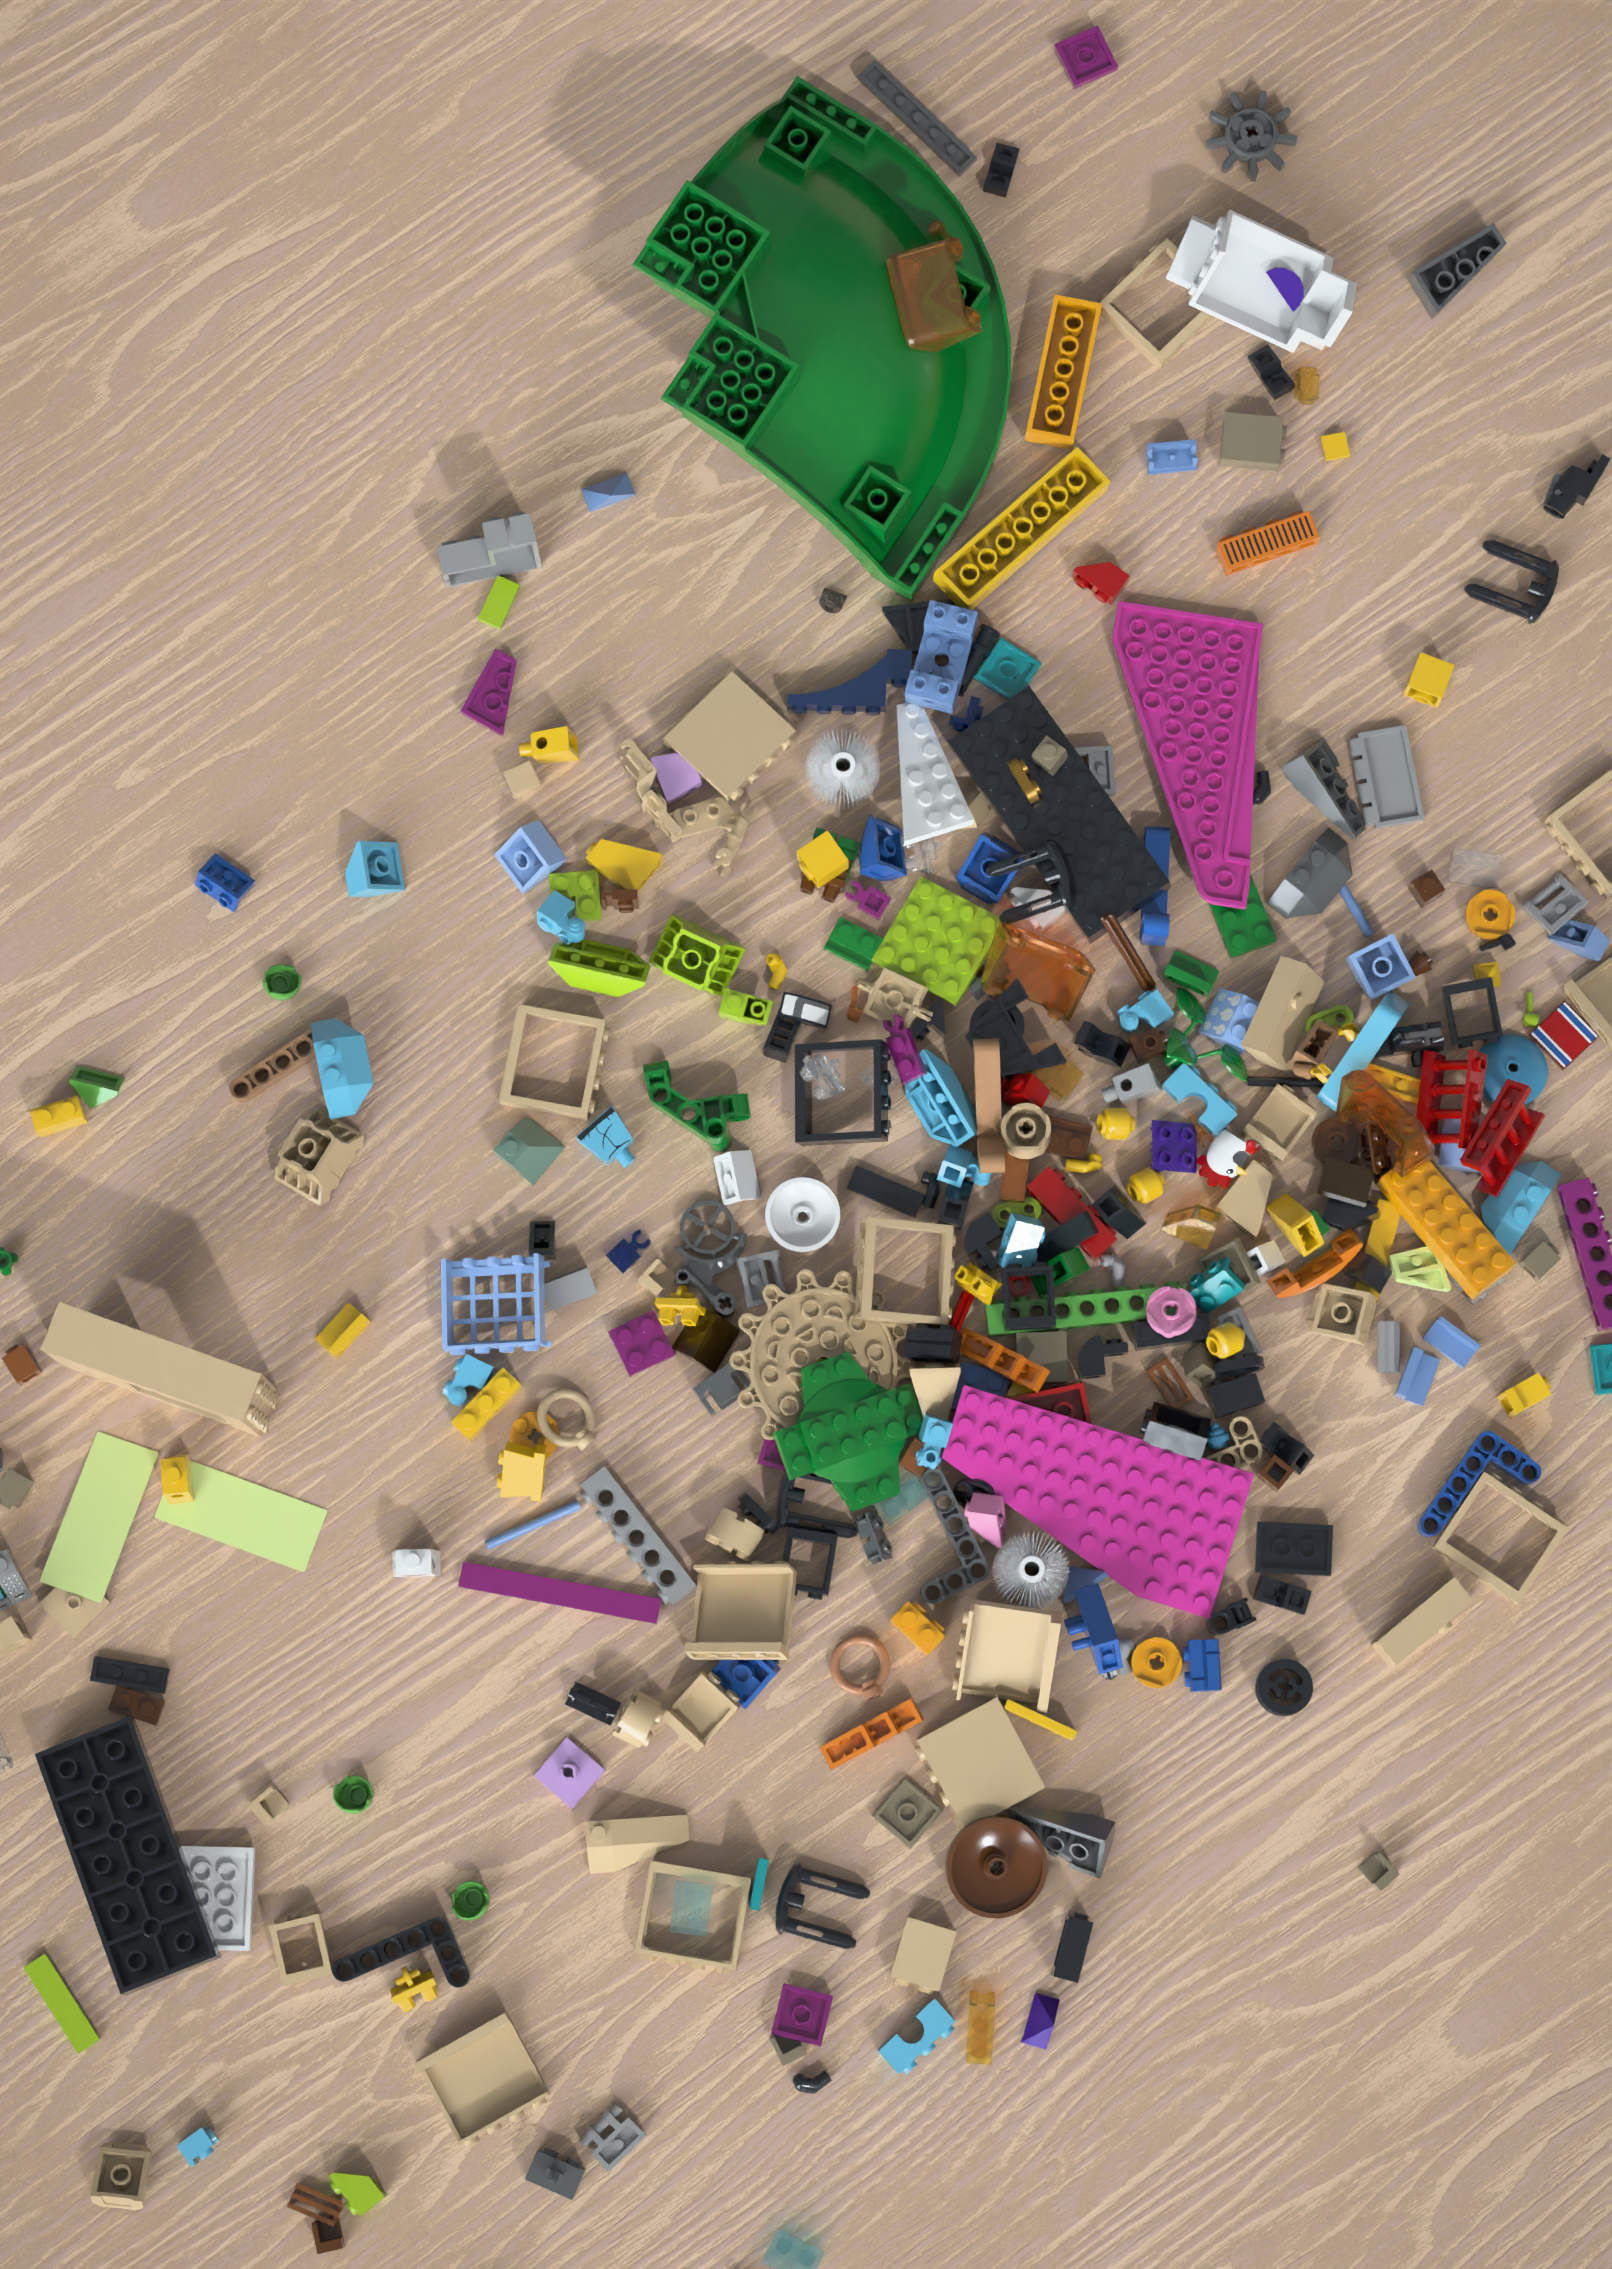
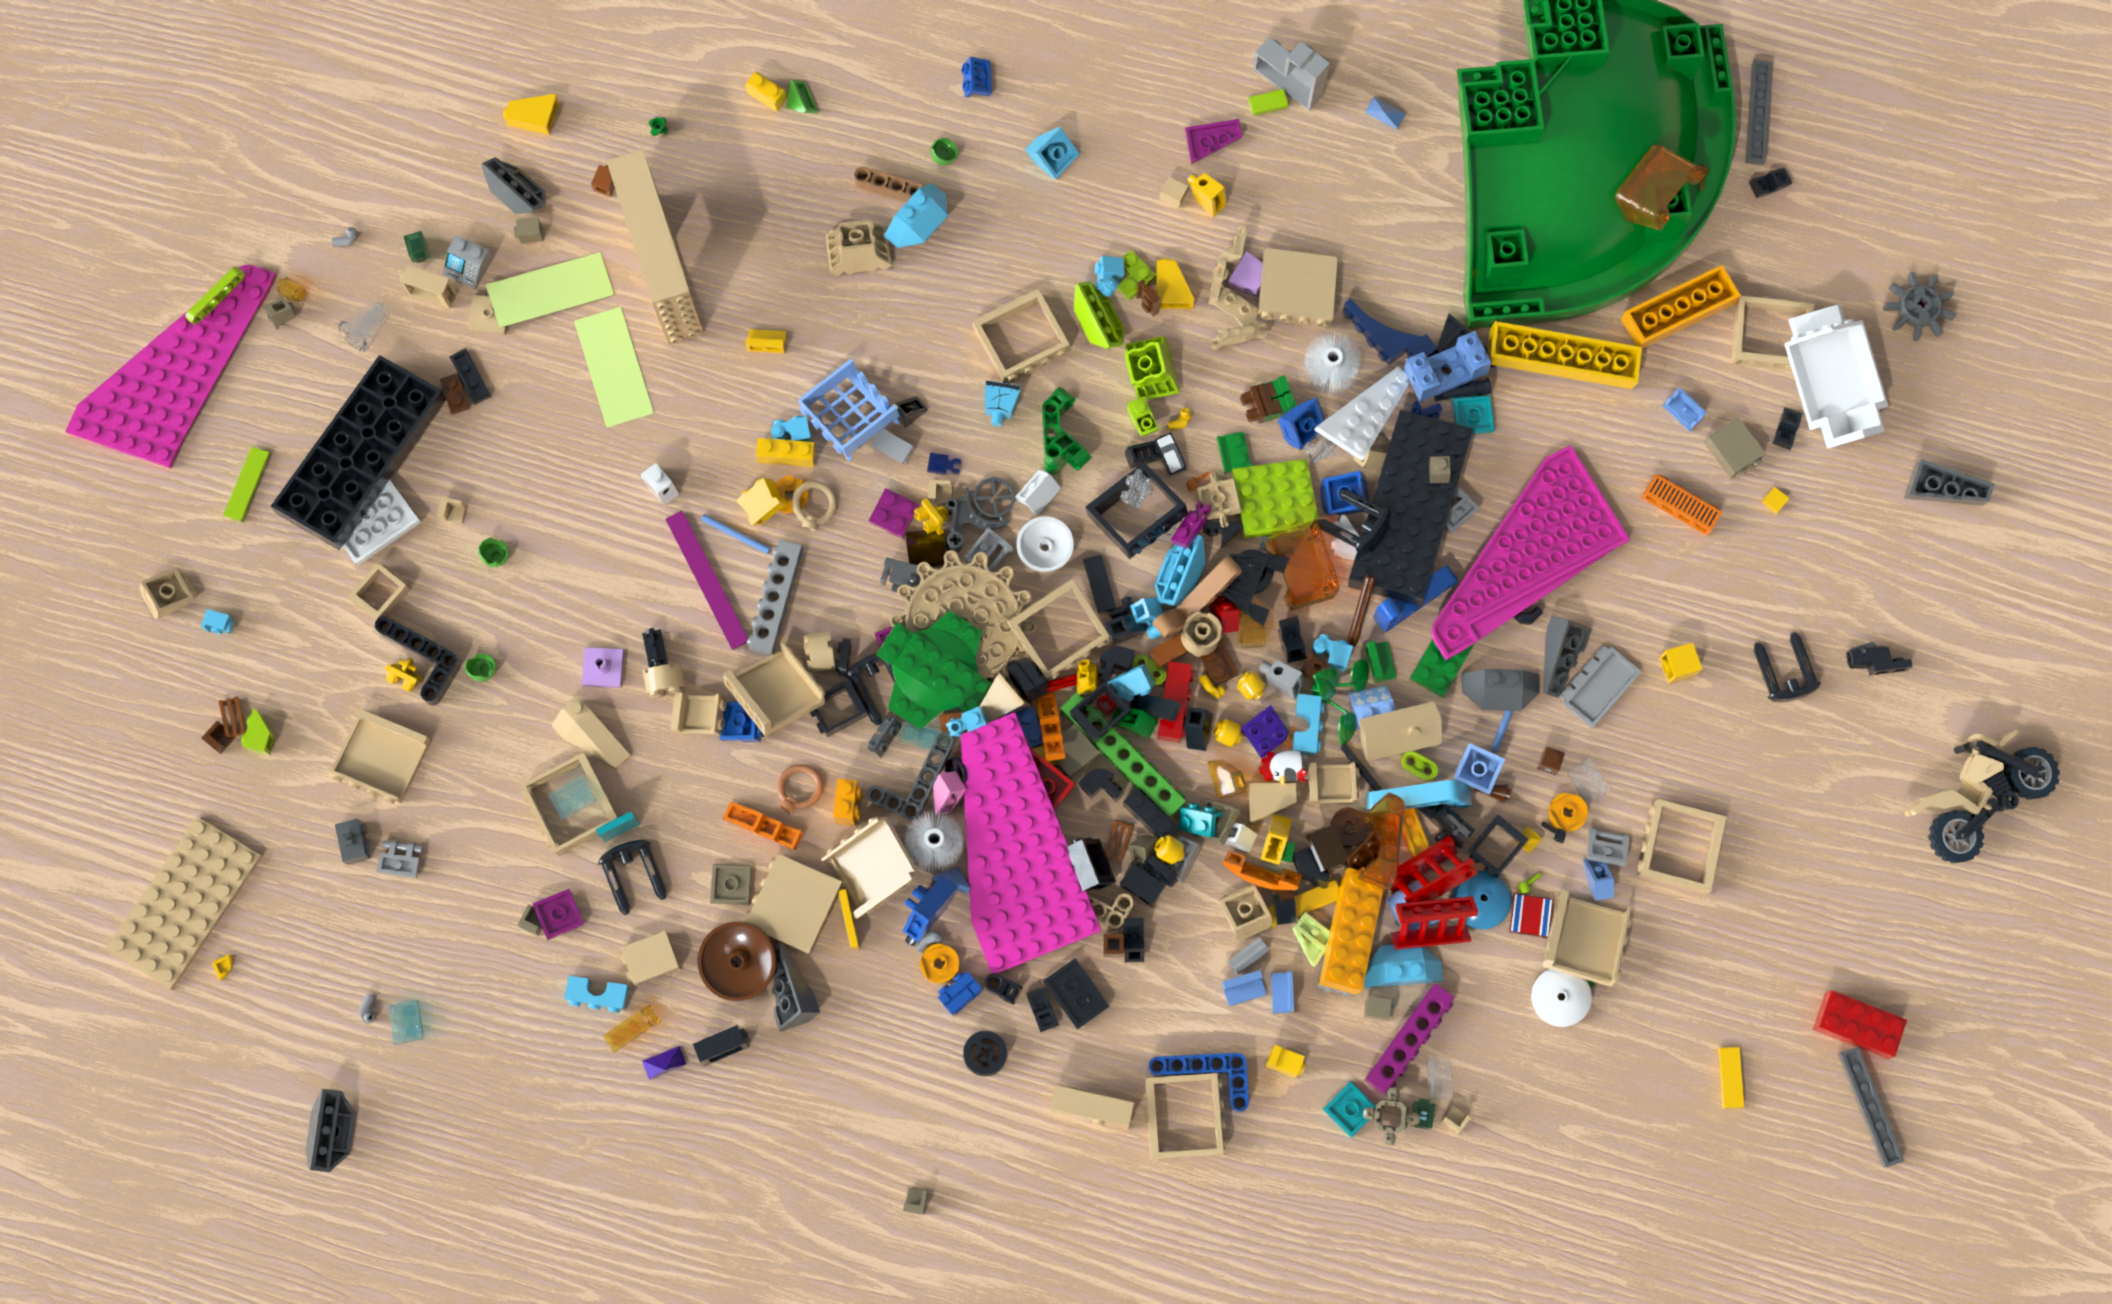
camera: 50 degrees right, 5 degrees down
(177, 1479) = (604, 313): yellow torso -> none
(528, 1150) = (957, 361): sand green slope -> none
(530, 856) = (1133, 230): light blue slope -> none
(810, 2085) = (519, 952): black arm -> none
(822, 859) = (1266, 390): yellow head -> none
(832, 601) = (1429, 284): clear smoke plate -> none
(871, 902) = (1267, 442): magenta plate -> none
(1019, 771) = (1415, 460): pearl gold plate -> none
(1086, 57) = (1881, 178): magenta plate -> none
(1102, 579) = (1576, 426): red slope -> none
(1116, 1266) = (1164, 753): light grey arm -> none
(1167, 1324) = (1156, 812): bright pink plate -> none
(1217, 1437) = (1108, 893): dark azure plate -> none
(1288, 285) = (1848, 393): dark purple tile -> none
(1307, 385) = (1797, 454): clear yellow brick -> none
(1314, 1048) = (1395, 766): medium nougat torso -> none

